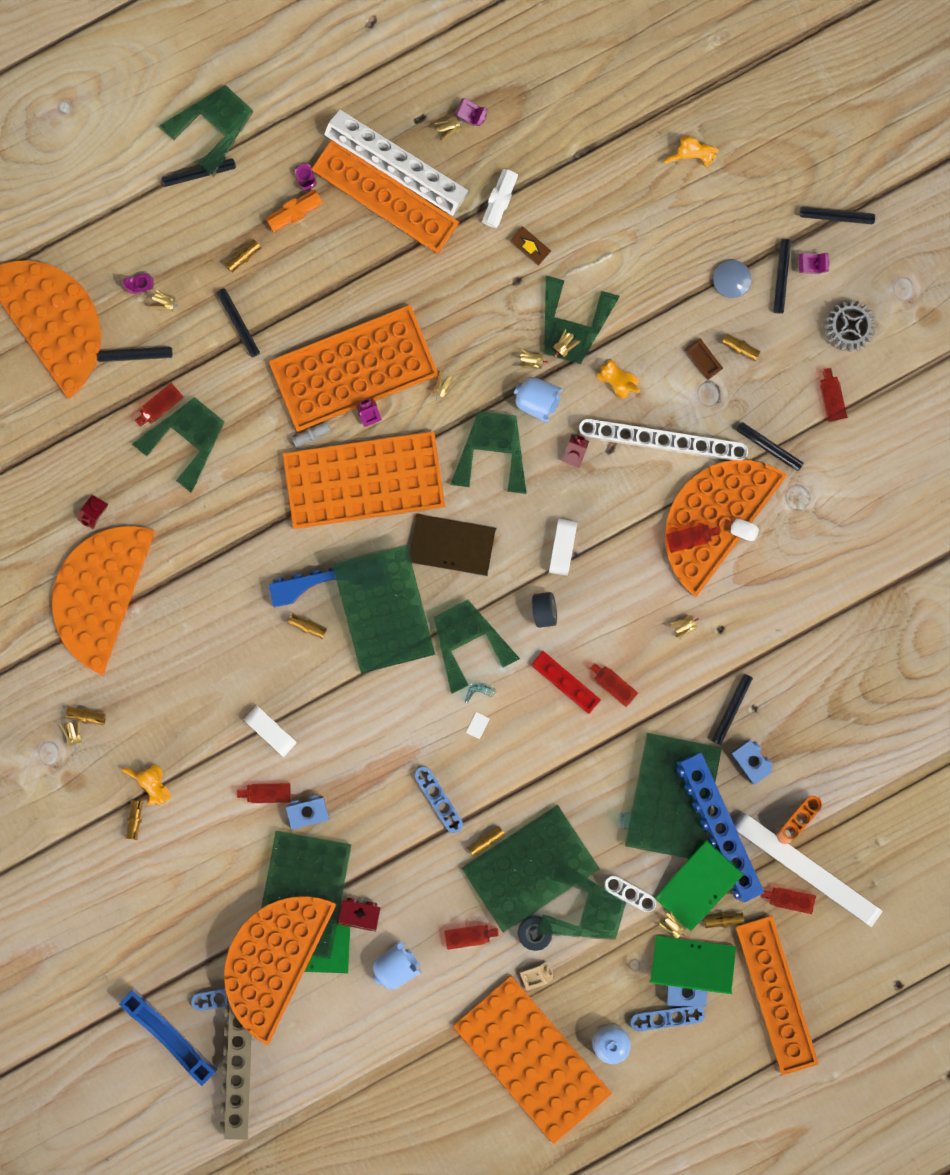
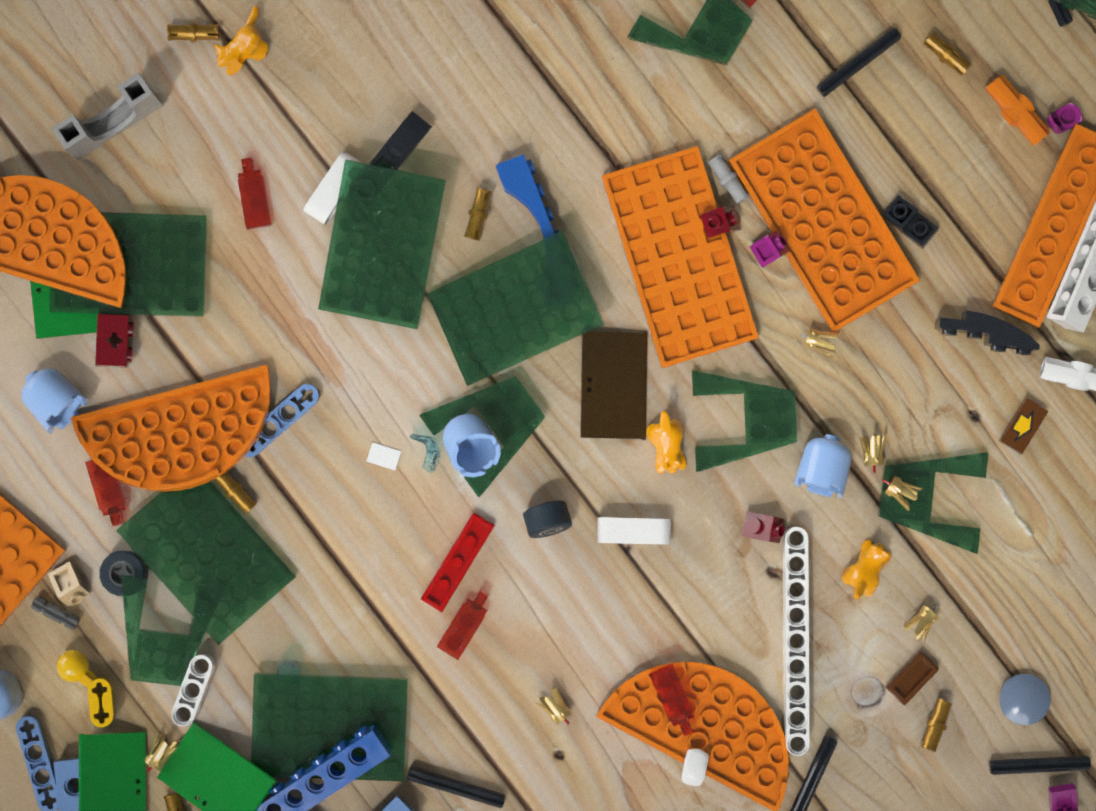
camera: 85 degrees right, 0 degrees up
(182, 871) = (86, 135): none -> light grey arch
(255, 685) = (402, 142): none -> black slope
(298, 820) = (225, 241): medium blue brick -> none
(319, 701) = (381, 244): none -> clear green plate
(342, 445) = (721, 221): none -> dark red bracket
(365, 304) = (910, 222): none -> black slope
(438, 875) = (179, 434): none -> orange plate
(458, 253) = (997, 332): none -> black slope
(480, 657) = (470, 445): none -> light blue cylinder
(499, 511) = (667, 440): none -> light orange animal
(556, 989) = (55, 613): none -> dark grey axle
(599, 980) = (74, 667): none -> yellow beam
(661, 341) = (926, 617): none -> pearl gold piece

